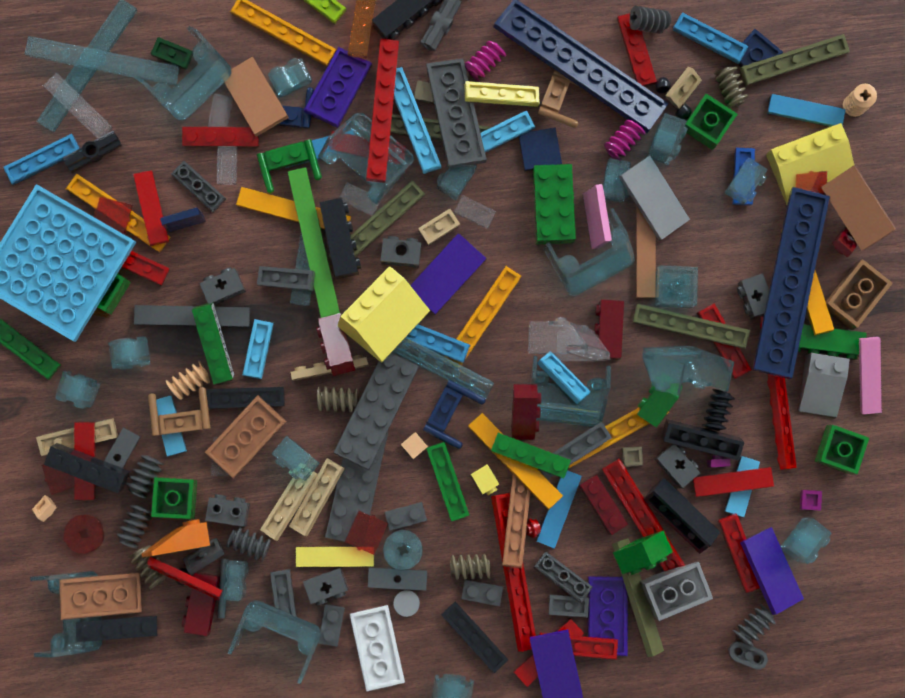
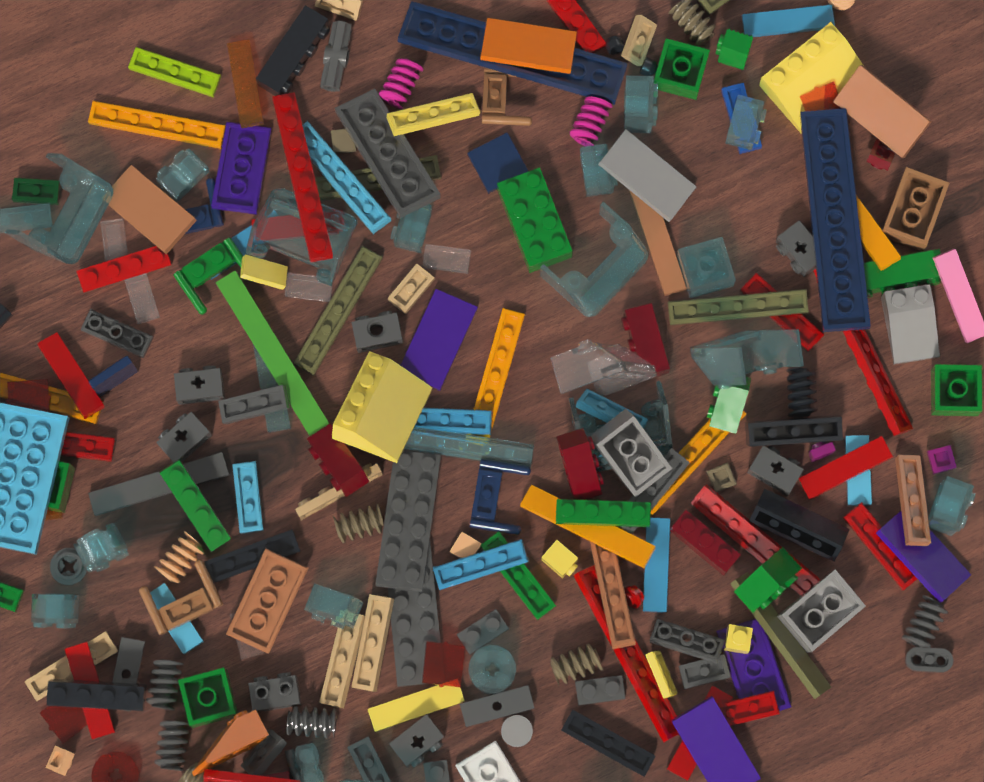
camera: 10 degrees left, 5 degrees down
(92, 355) = (57, 567): none -> dark grey gear
(257, 255) = (188, 379): none -> dark grey brick
(273, 205) = (228, 325): light orange tile -> none
(328, 175) = (263, 272): none -> light yellow tile
(339, 238) = (301, 339): black brick -> none
(421, 463) = (480, 564): none -> dark azure tile
(507, 131) = (453, 154): medium azure tile -> none
(534, 597) = (661, 674): none -> light yellow tile
(568, 415) = (630, 452): none -> light grey slope
(595, 63) = (528, 45): none -> orange tile
(597, 216) = (588, 217): bright pink tile -> none
(603, 590) = (738, 639): none -> light yellow brick
(757, 119) = (734, 48): none -> green brick
(778, 526) = (913, 500): none -> nougat plate

